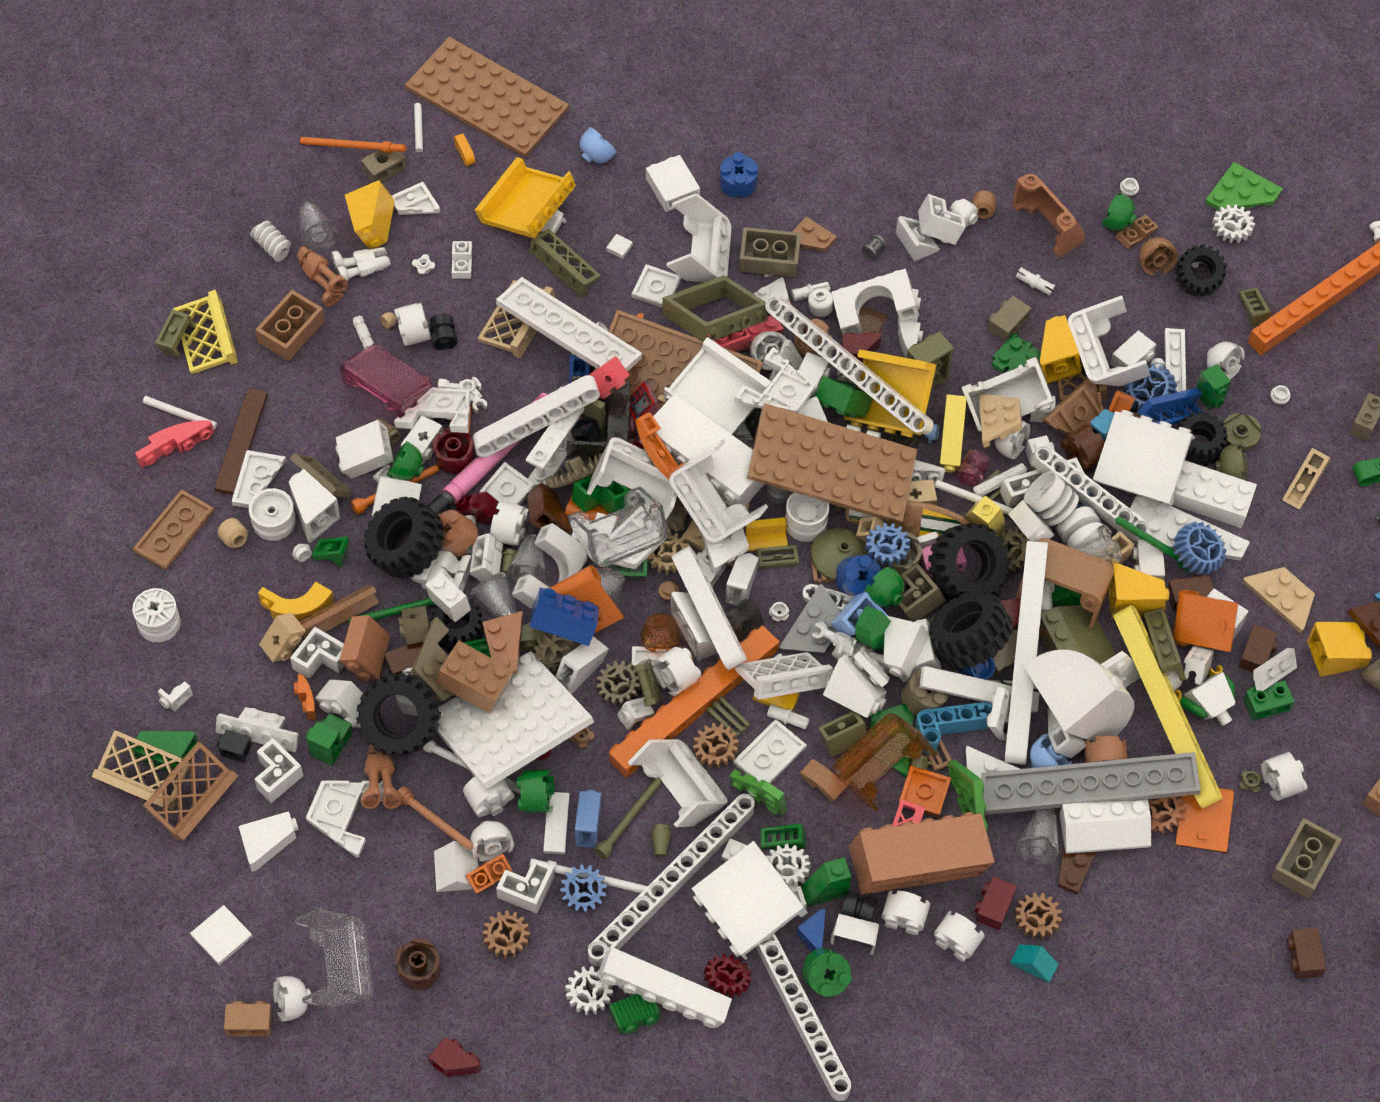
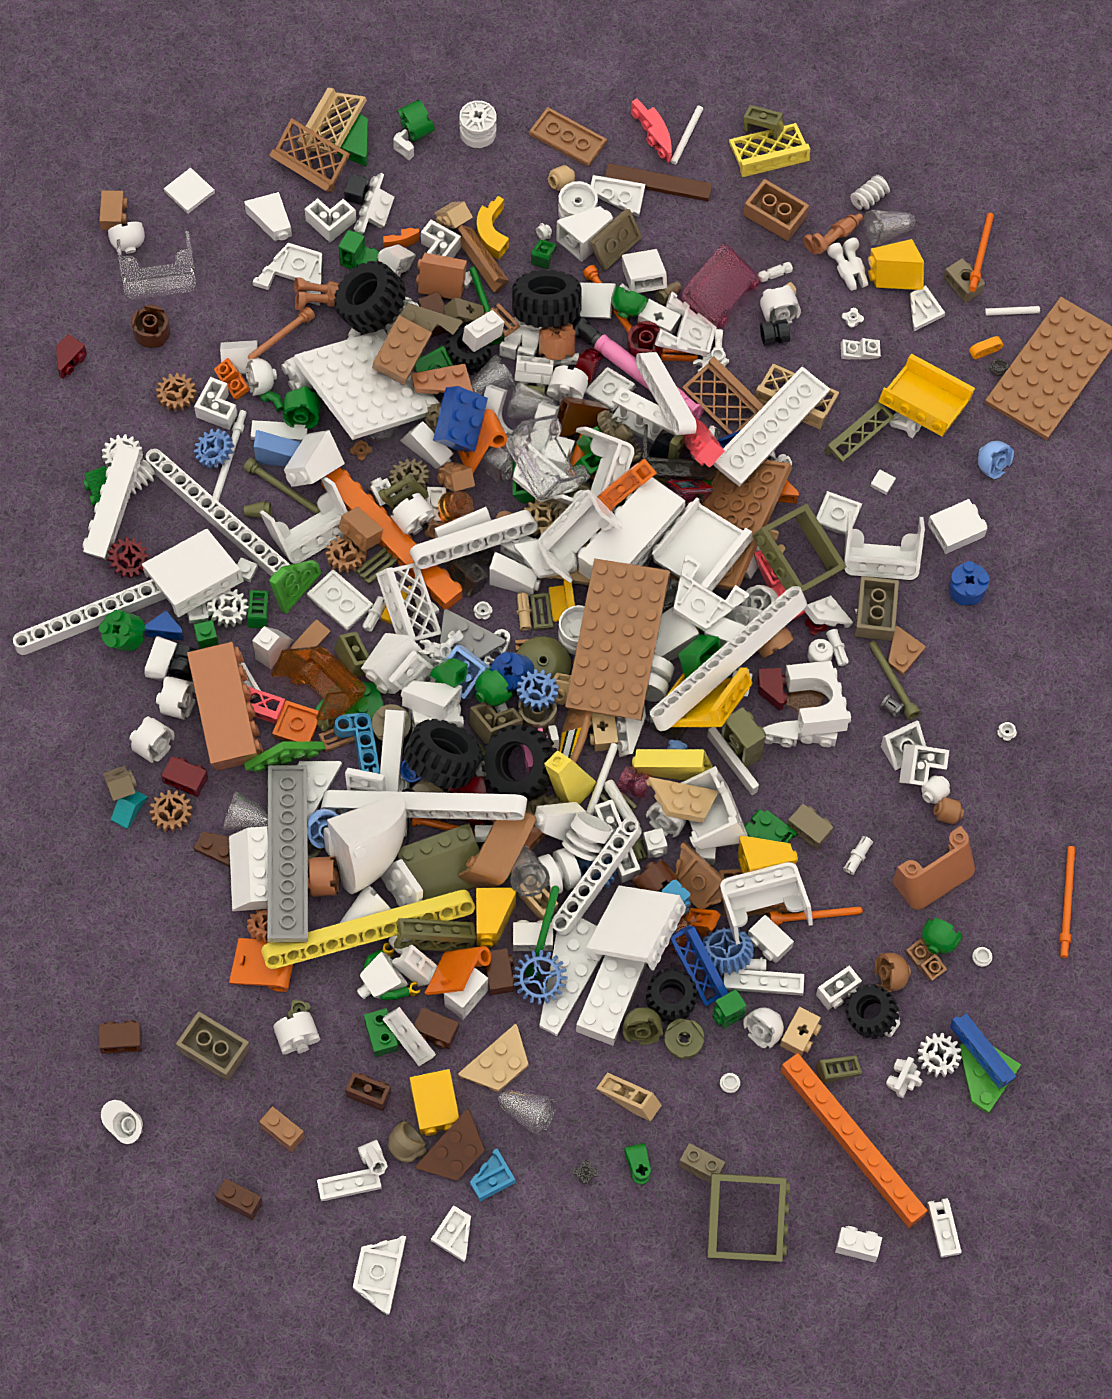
camera: 90 degrees right, 5 degrees up
(145, 679) = (416, 120): none -> green brick
(418, 582) = (515, 324): none -> medium nougat tile
(486, 141) = (998, 367): none -> clear smoke plate
(514, 366) = (733, 385): none -> medium nougat fence
(517, 826) = (275, 398): none -> green arm
(609, 772) = (313, 459): none -> white slope
(625, 630) = (455, 476): none -> medium nougat brick
(694, 723) = (360, 529): none -> medium nougat brick
(780, 571) = (524, 611): none -> tan axle
(836, 814) = (269, 644): none -> white slope
(877, 229) = (911, 710): none -> olive piece
(894, 151) = (1009, 727): none -> white plate
(953, 376) = (733, 760): none -> white tile
(1014, 965) = (120, 782): none -> dark tan brick
(1104, 121) = (1065, 936): none -> orange bar
(1106, 346) = (779, 918): none -> orange piece
(1145, 718) = (366, 904): none -> white cone
(1178, 298) = (838, 988): none -> white brick
(1220, 329) = (804, 1021): none -> tan brick
(1229, 186) = (982, 1051): none -> blue fence
(1260, 248) = (907, 1079): none -> white hips
(1335, 562) = (528, 1109): none -> clear cone
(1335, 709) = (368, 1091): none -> reddish brown brick

